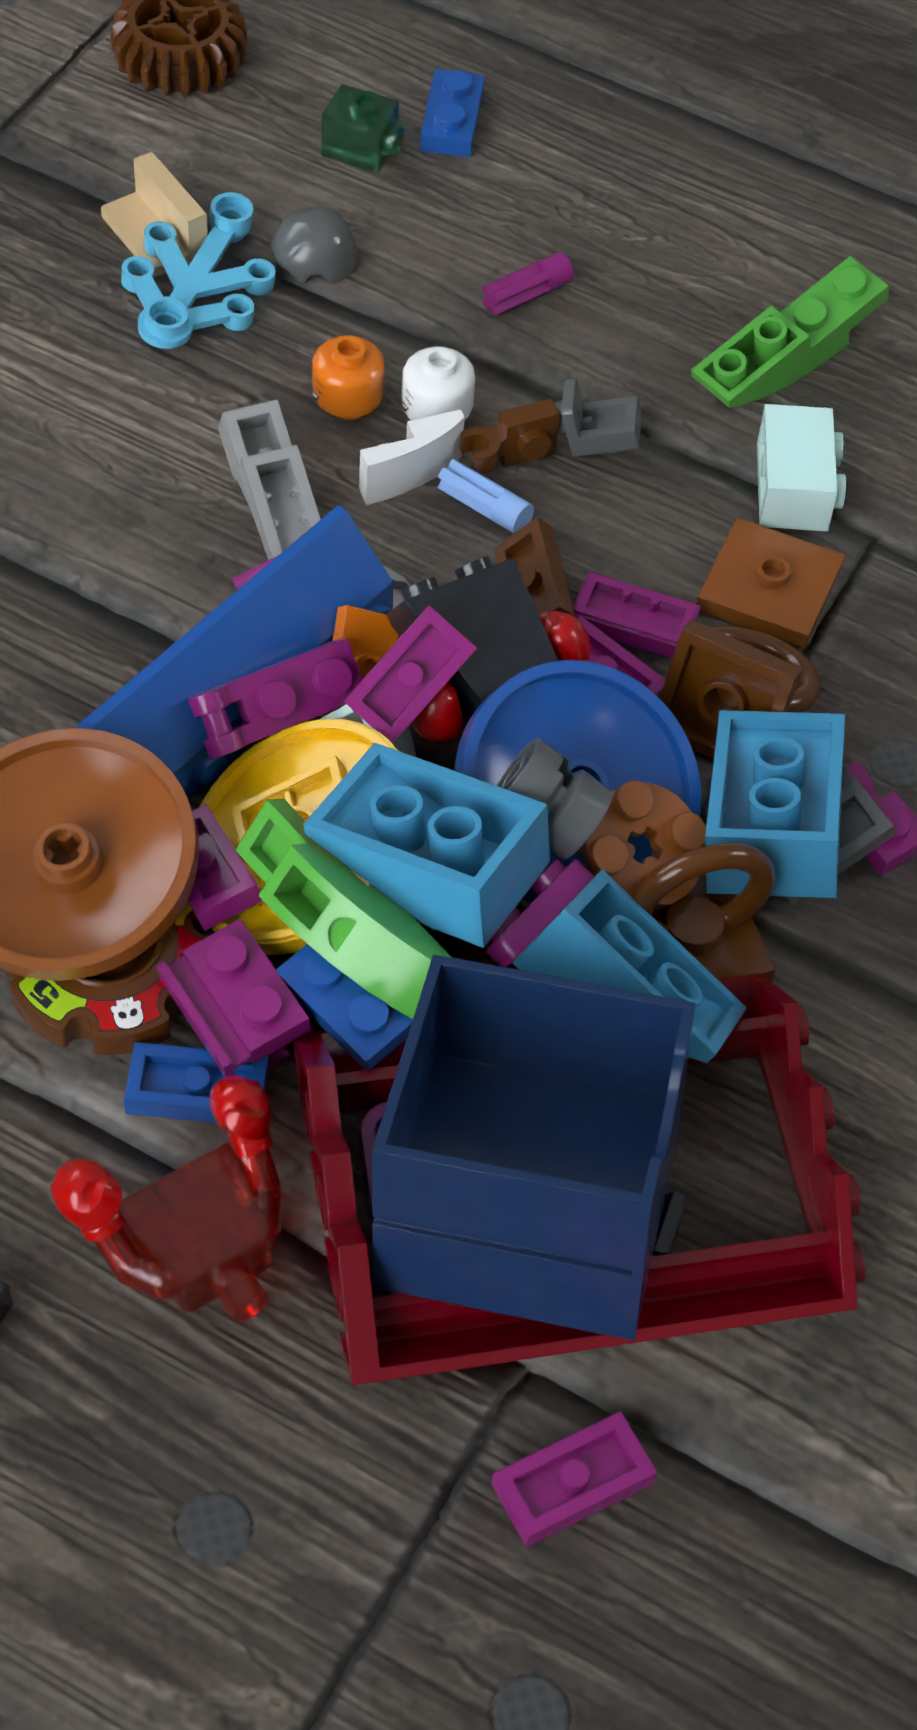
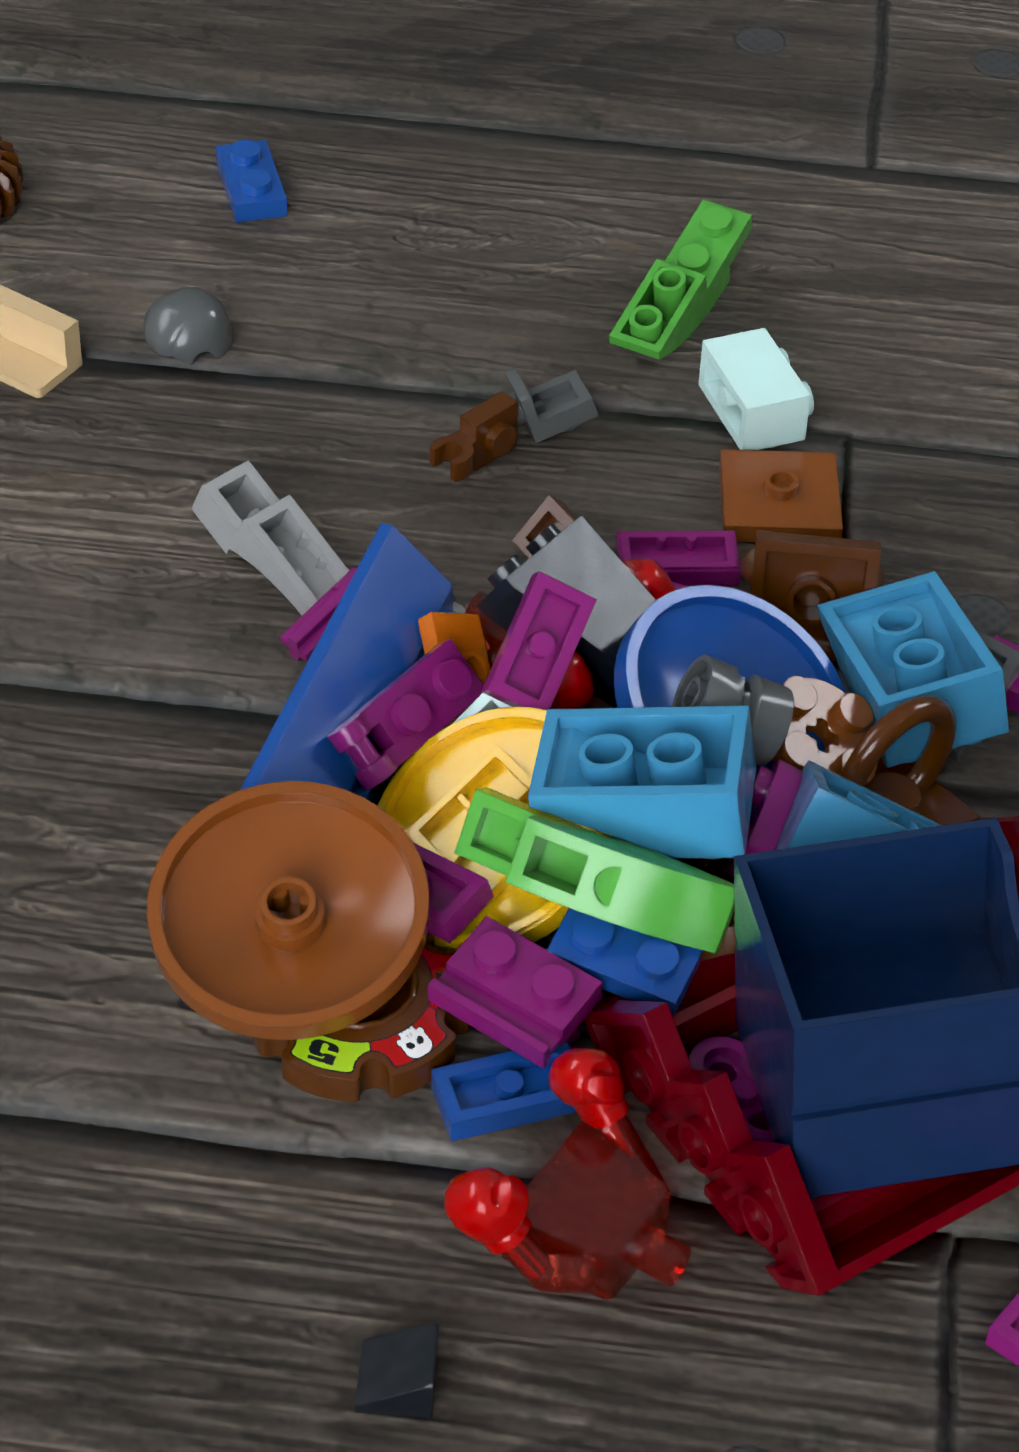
camera: 20 degrees left, 10 degrees down
(170, 320) = (83, 427): medium azure plant -> none
(348, 377) = (294, 428): orange head -> none
(361, 128) = (177, 213): clear green brick -> none
(410, 463) = (394, 485): white slope -> none
(437, 383) = (385, 414): white head -> none
(485, 496) = (478, 498): light blue piece -> none
(528, 283) = (410, 306): magenta piece -> none

